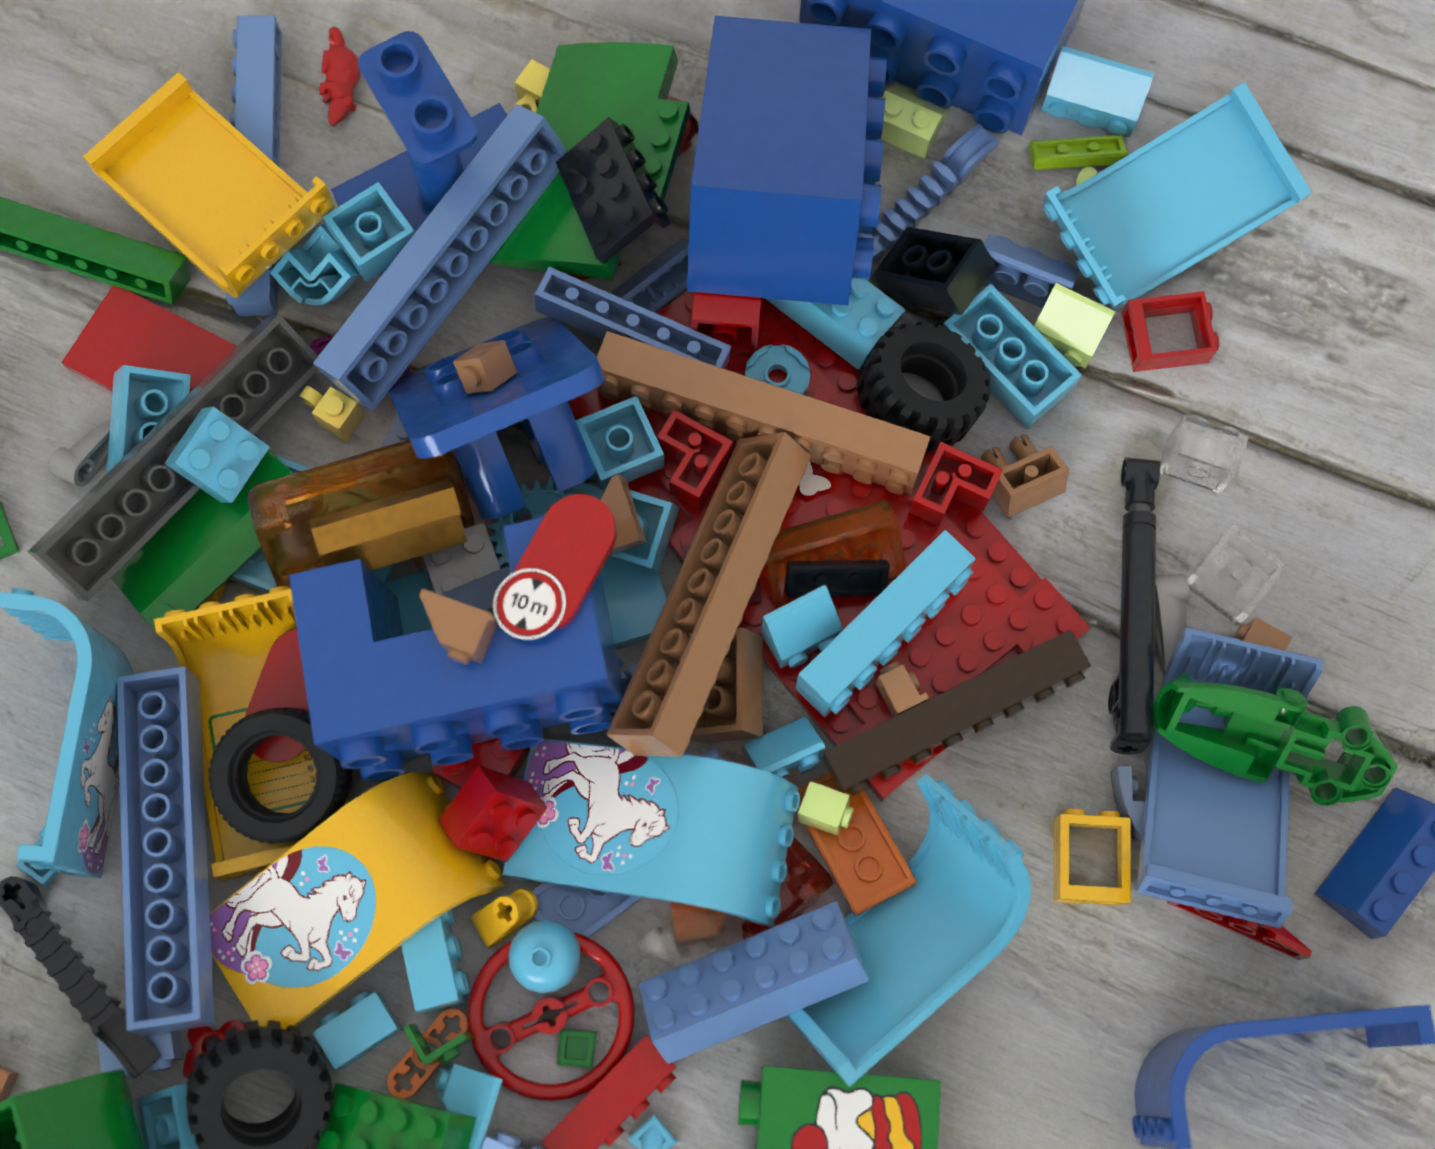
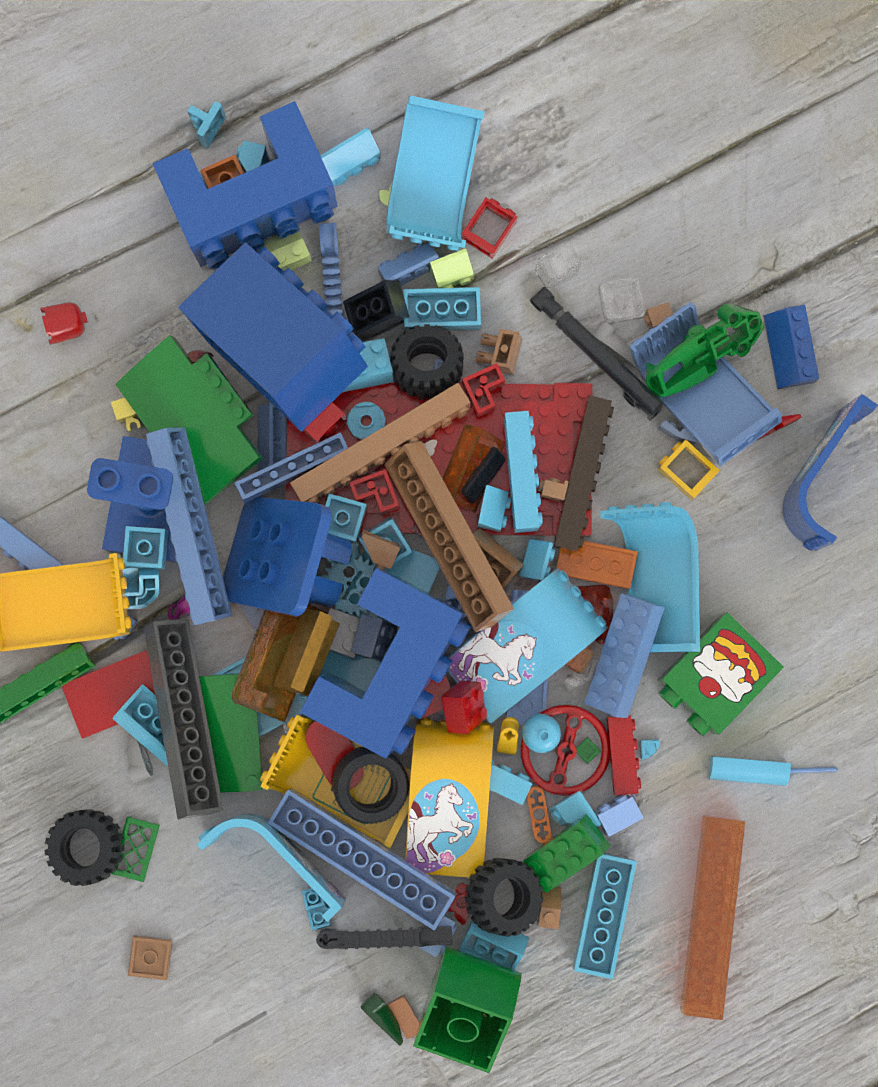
camera: 50 degrees left, 10 degrees up
(217, 455) = (200, 701): medium azure brick -> none
(334, 411) = (213, 632): light yellow brick -> none
(341, 77) = (39, 495): red animal -> none
(356, 1030) = (505, 836): medium azure brick -> none
(444, 1053) = (547, 806): green bracket -> none
(459, 627) = (389, 658): medium nougat slope -> none
(485, 367) = (275, 553): medium nougat brick -> none
(529, 604) = (403, 620): sticker -> none
(572, 547) = (396, 593): red tile -> none
(611, 189) = (223, 425): black bracket -> none
(825, 809) = (576, 564): yellowish green brick -> none
(1076, 152) = (369, 190): lime tile -> none

